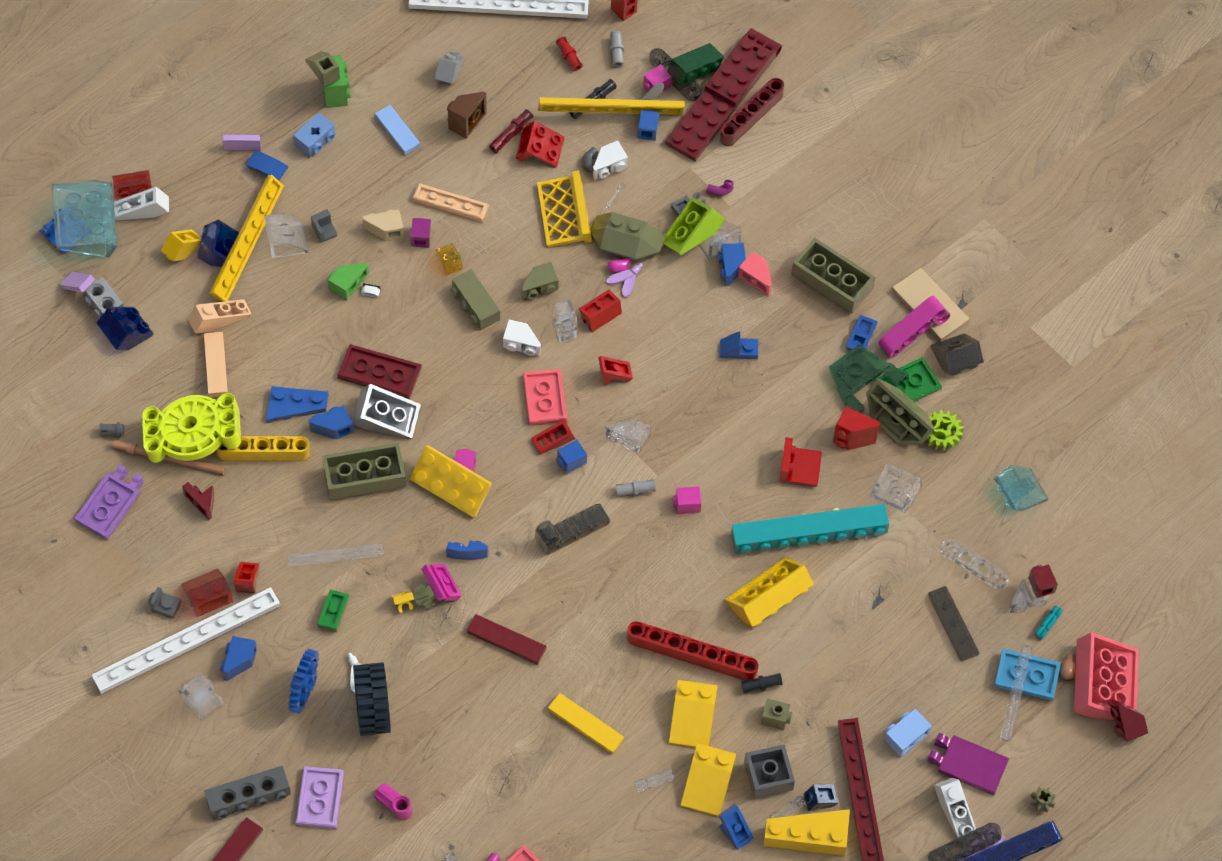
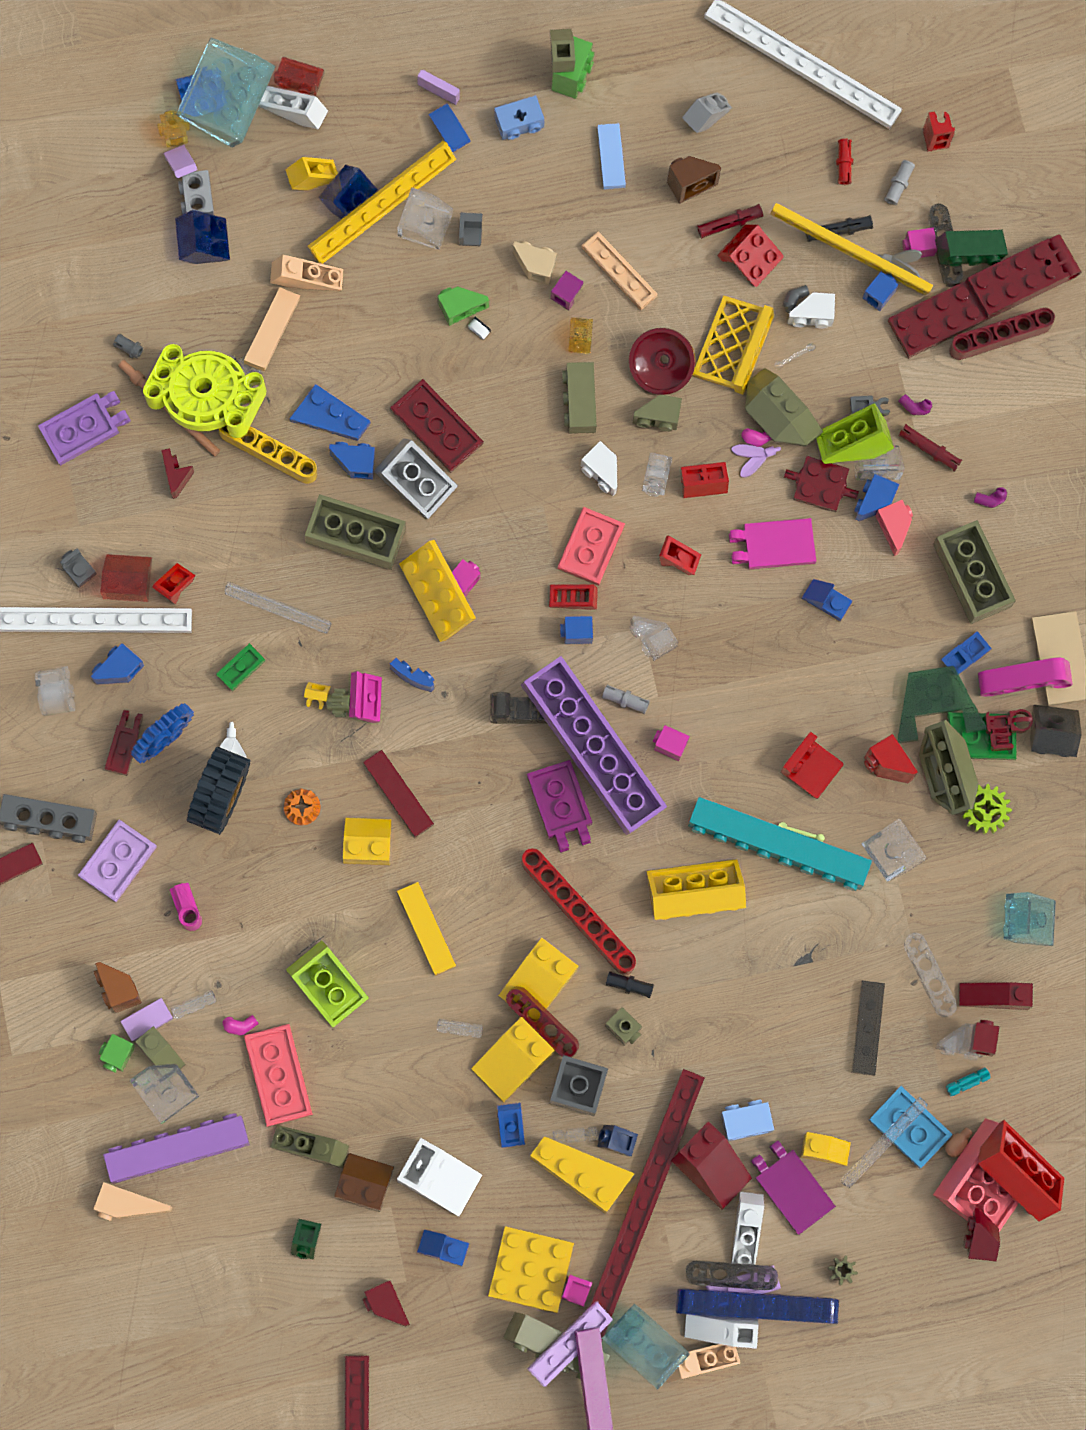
camera: 25 degrees right, 15 degrees up
(58, 262) = (173, 128): none -> clear yellow brick
(276, 711) = (124, 740): none -> dark red hinge
(436, 693) = (294, 815): none -> orange gear
(504, 685) = (367, 841): none -> yellow slope
(518, 230) = (648, 367): none -> dark red dish
(535, 799) = (327, 983): none -> lime slope
(633, 526) = (593, 745): none -> medium lavender brick
(633, 584) = (560, 803): none -> magenta tile
(678, 329) = (775, 544): none -> dark pink tile
(686, 273) = (821, 484): none -> dark red plate
(714, 739) = (545, 1019): none -> dark red beam
(747, 210) = (938, 452): none -> dark red pin
(815, 223) = (992, 500): none -> magenta arm
(902, 775) = (712, 1165): none -> dark red slope
(921, 372) = (1001, 730): none -> dark red piece
(975, 722) = (825, 1149): none -> yellow slope
(1031, 551) = (996, 995): none -> dark red slope
(1127, 659) = (1022, 1172): none -> red slope

